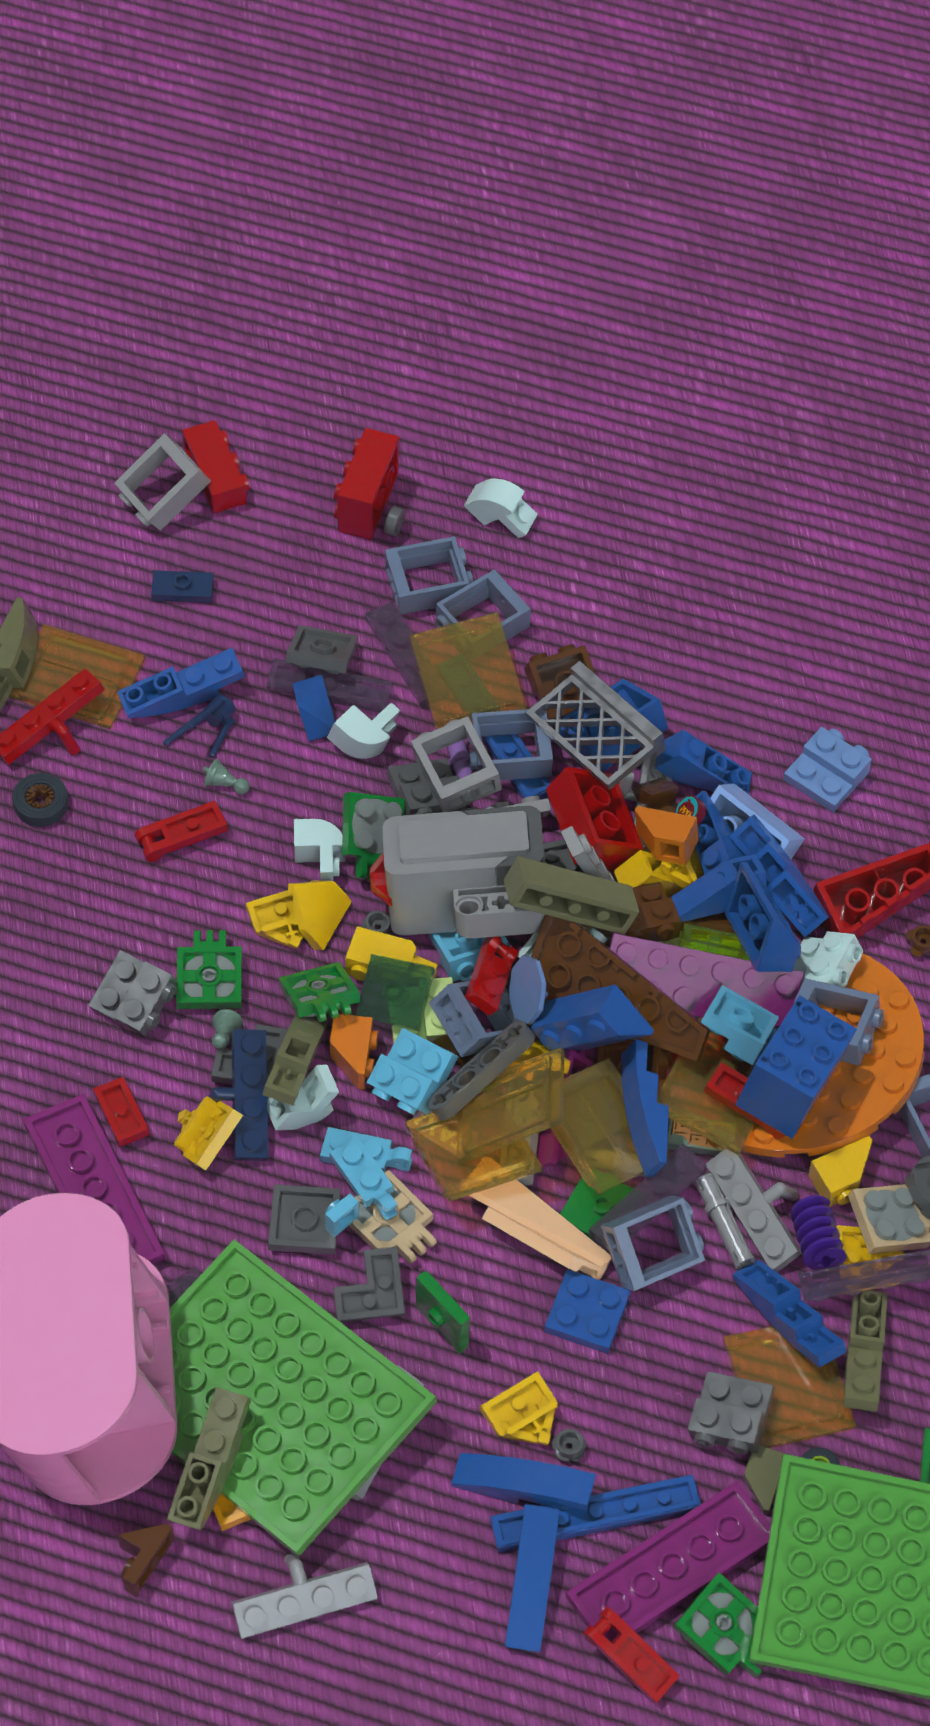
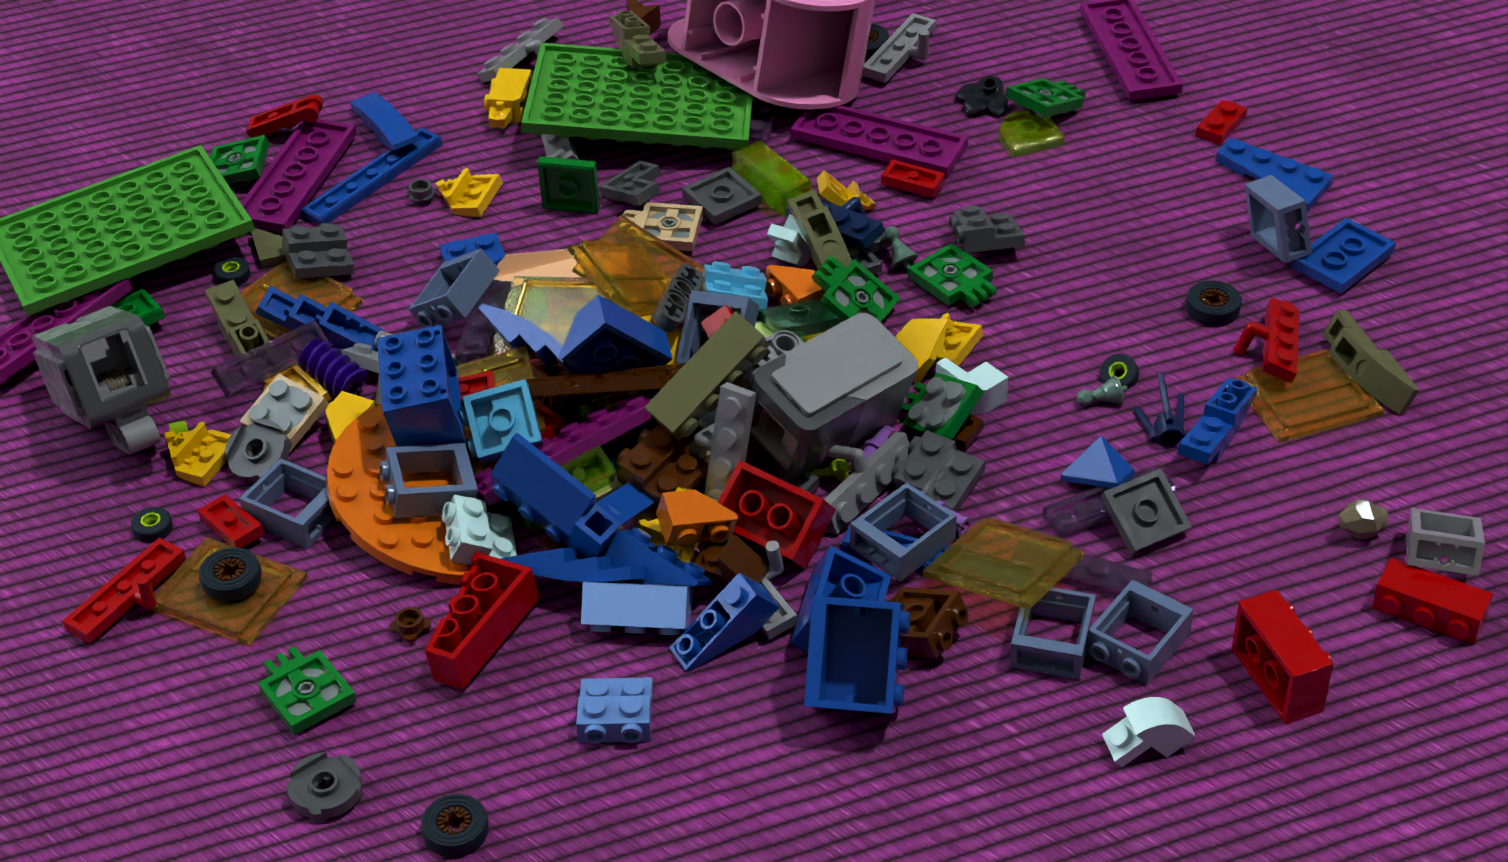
camera: 145 degrees right, 15 degrees down
(181, 545) = (1363, 519): none -> dark tan rock
(181, 830) = (1086, 343): red plate -> none
(182, 586) = (1323, 502): dark blue plate -> none
(188, 791) = (1117, 362): none -> black wheel
(245, 1200) = (770, 175): none -> clear neon green brick
(341, 1214) = (692, 189): medium azure plate -> none
(361, 736) = (1033, 471): light aqua brick -> none
(365, 1176) = (699, 221): medium azure plate -> none
(378, 1147) = (728, 249): medium azure plate -> none
(382, 1520) = (507, 96): none -> yellow hinge
(394, 521) = (1225, 659): dark grey tile -> none
(467, 788) = (913, 474): light grey window -> none
(523, 1479) = (440, 153): blue slope -> none
(527, 989) = (683, 339): medium blue piece -> none
(619, 714) = (831, 566): flat silver fence -> none
(654, 647) = (856, 654): none -> blue container
(691, 806) = (692, 555): dark red tile -> none

